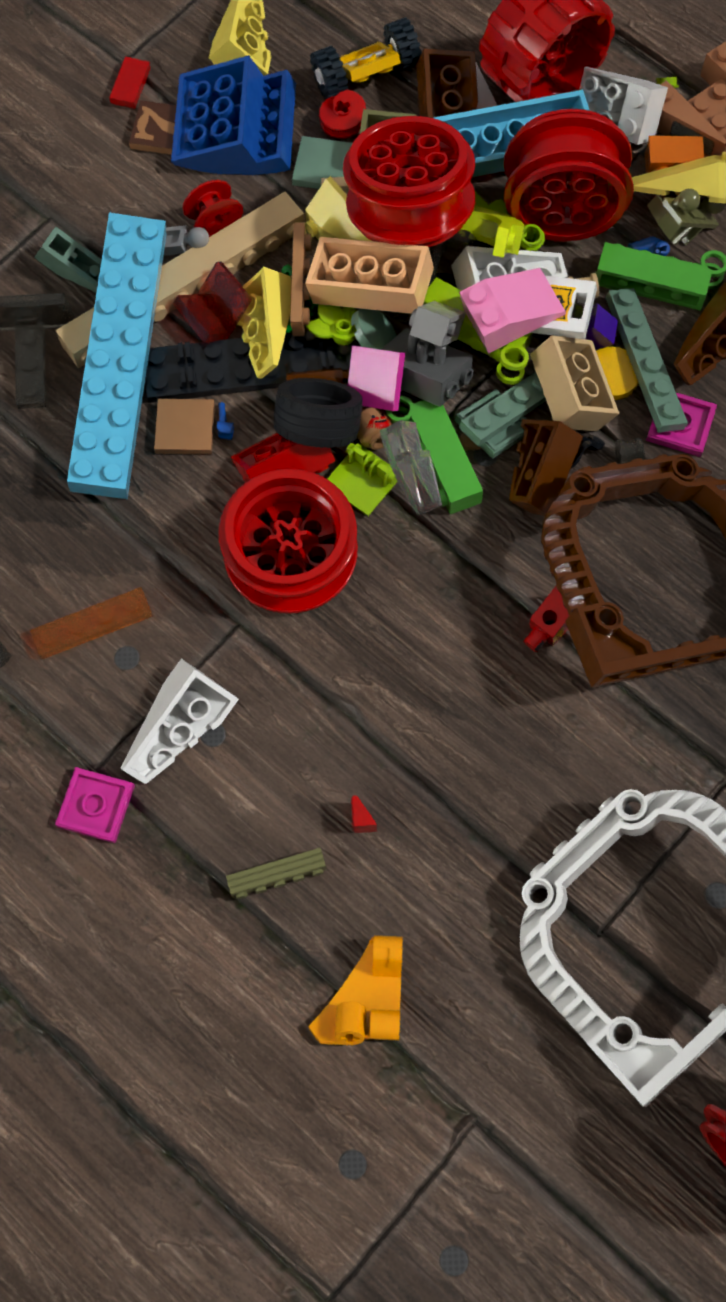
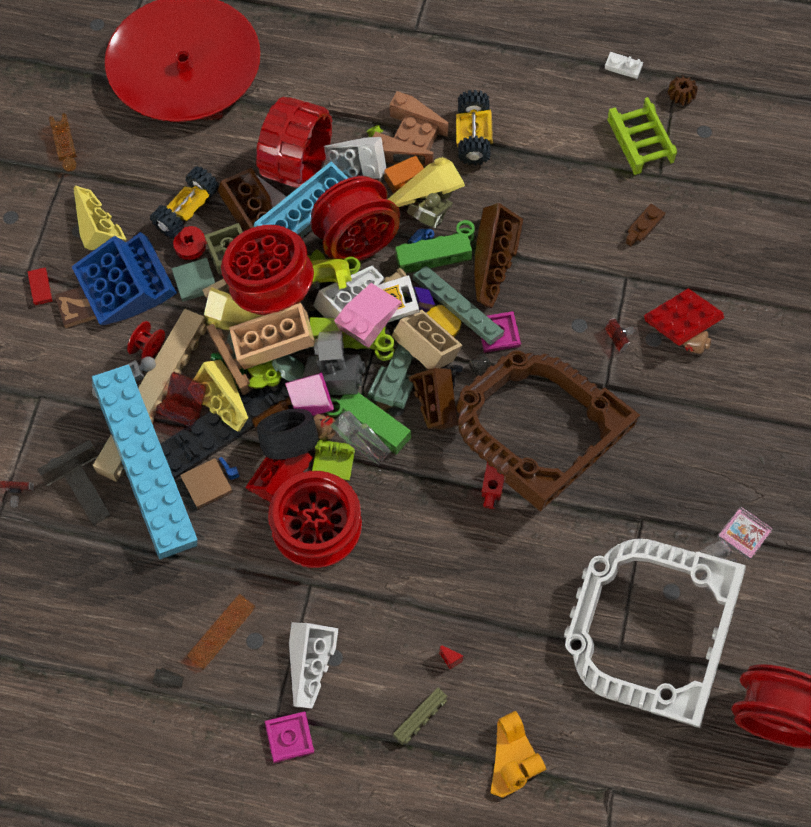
camera: 30 degrees left, 5 degrees down
(70, 259) = (76, 417): sand green slope -> none

